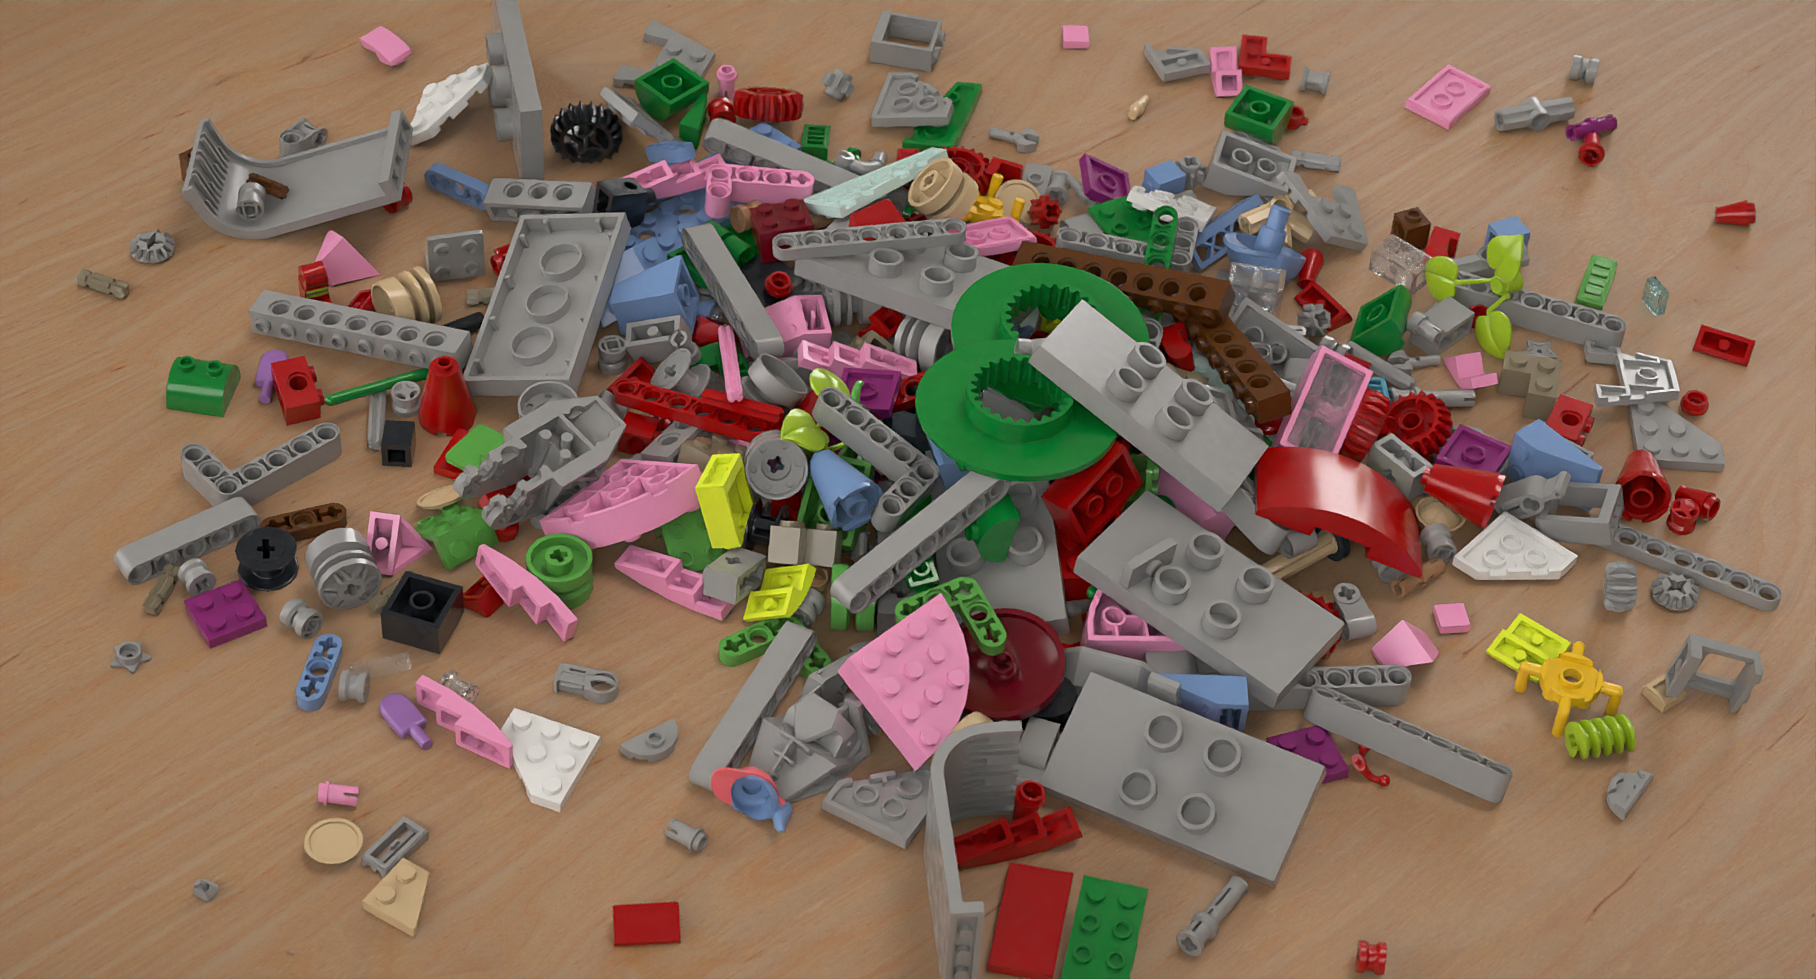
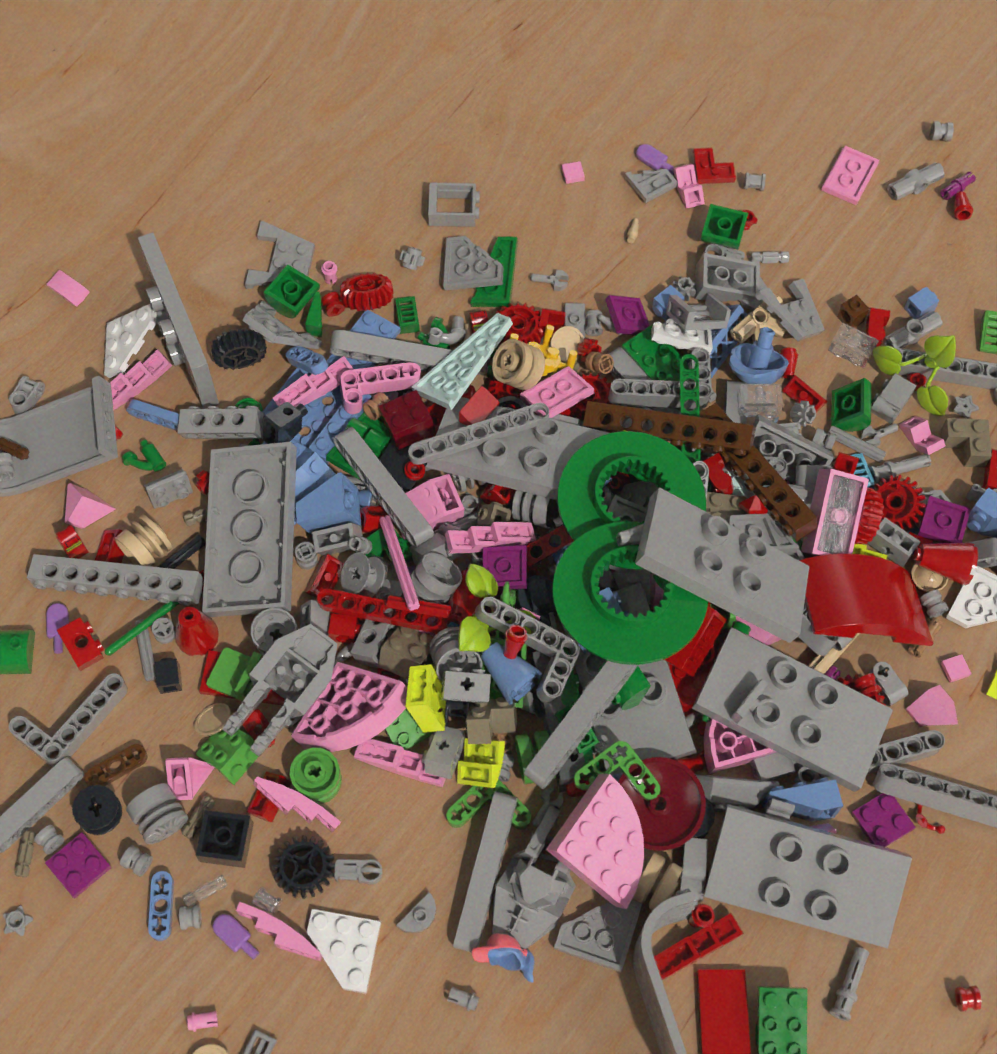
camera: 10 degrees left, 20 degrees up
(440, 220) = (152, 455): none -> green plant
(447, 148) = (138, 378): none -> bright pink slope
(516, 670) = (298, 874): none -> black gear
(787, 502) = (477, 692): none -> light grey brick
(854, 440) = (514, 640): none -> red cone
(1052, 220) = (599, 362): none -> medium nougat wheel
(1175, 183) = (685, 314): none -> light grey window
(1185, 37) = (653, 158): none -> medium lavender piece
(1213, 377) = (753, 506): none -> red slope
(1320, 591) = (867, 685): none -> red wheel

